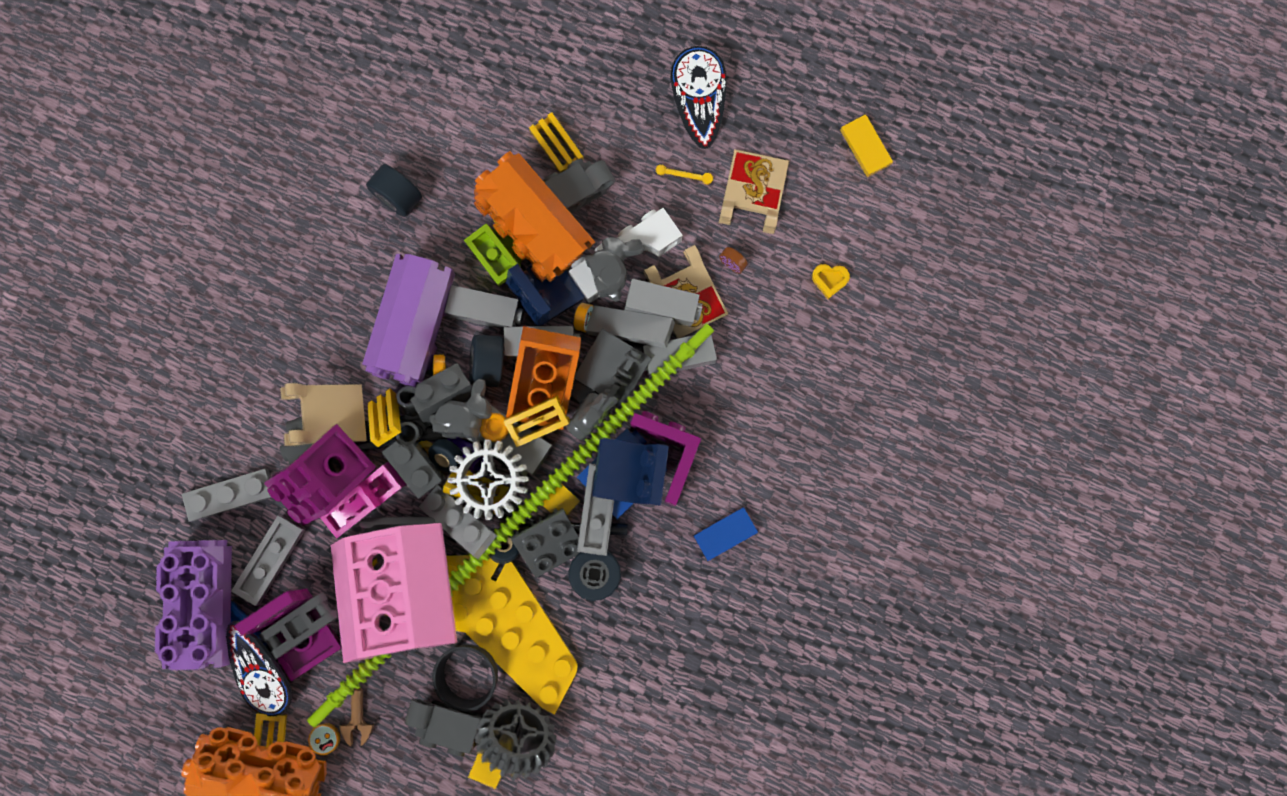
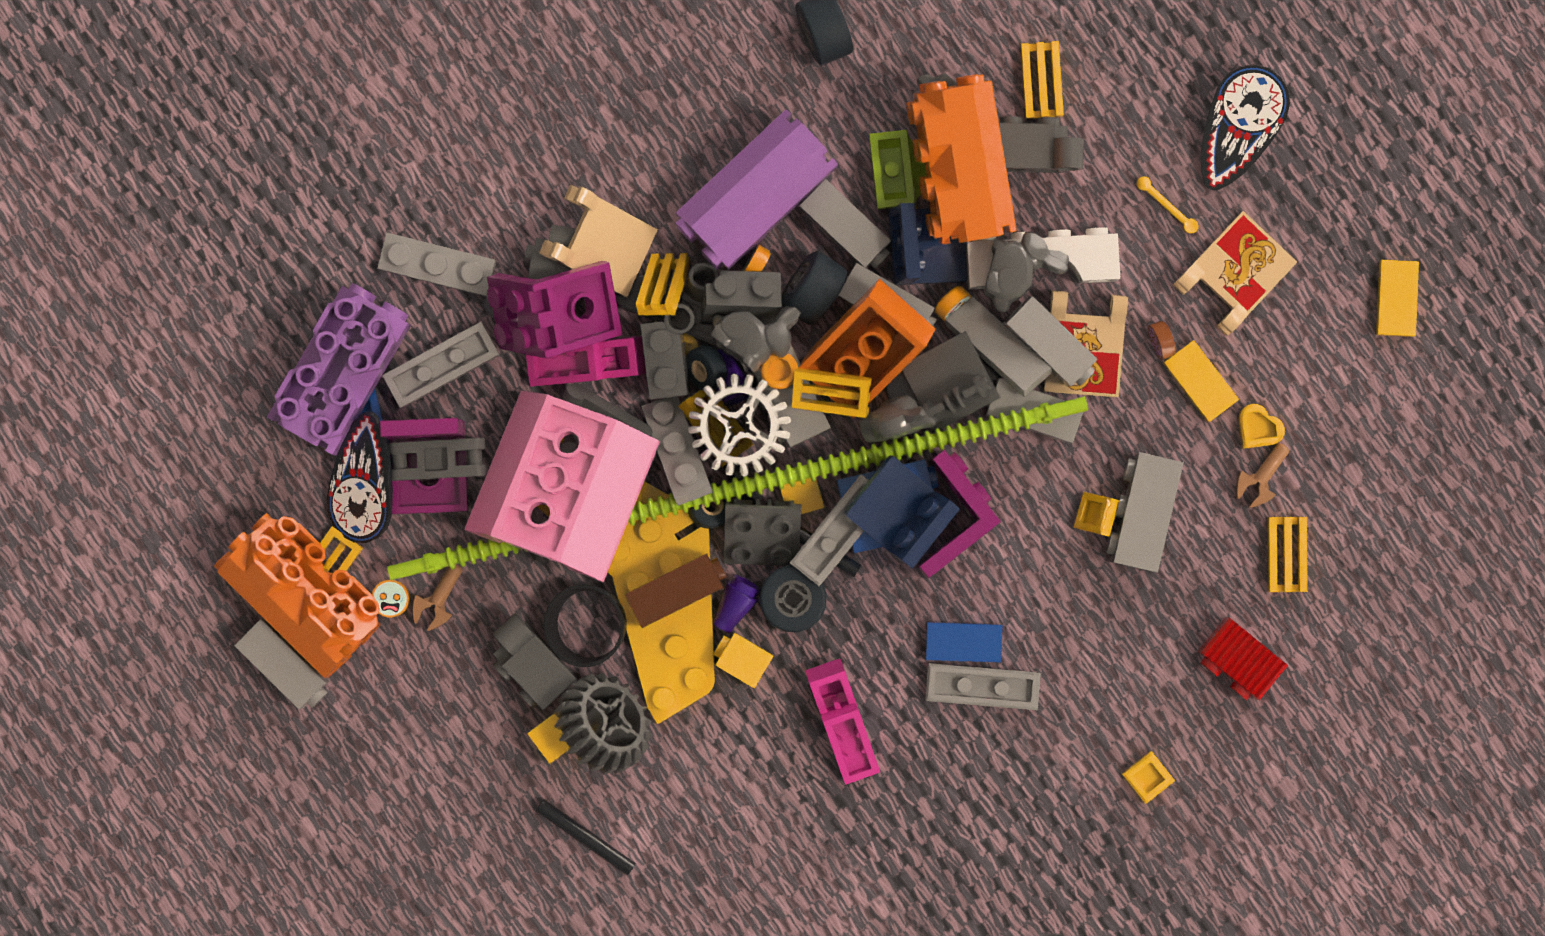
camera: 30 degrees right, 5 degrees up
(511, 617) = (676, 590): none -> reddish brown brick
(558, 599) = (735, 603): none -> dark purple cone
(585, 635) = (742, 659): none -> yellow brick
(677, 636) = (842, 721): none -> dark pink slope
(755, 556) = (982, 686): none -> light grey tile
(760, 397) = (1096, 514): none -> yellow tile
(774, 272) = (1201, 381): none -> yellow tile
(791, 376) = (1145, 511): none -> light grey brick
(851, 309) = (1262, 476): none -> medium nougat bar
(900, 549) = (1148, 777): none -> yellow tile
(908, 343) = (1287, 523): none -> yellow tile
(913, 434) = (1241, 659): none -> red brick

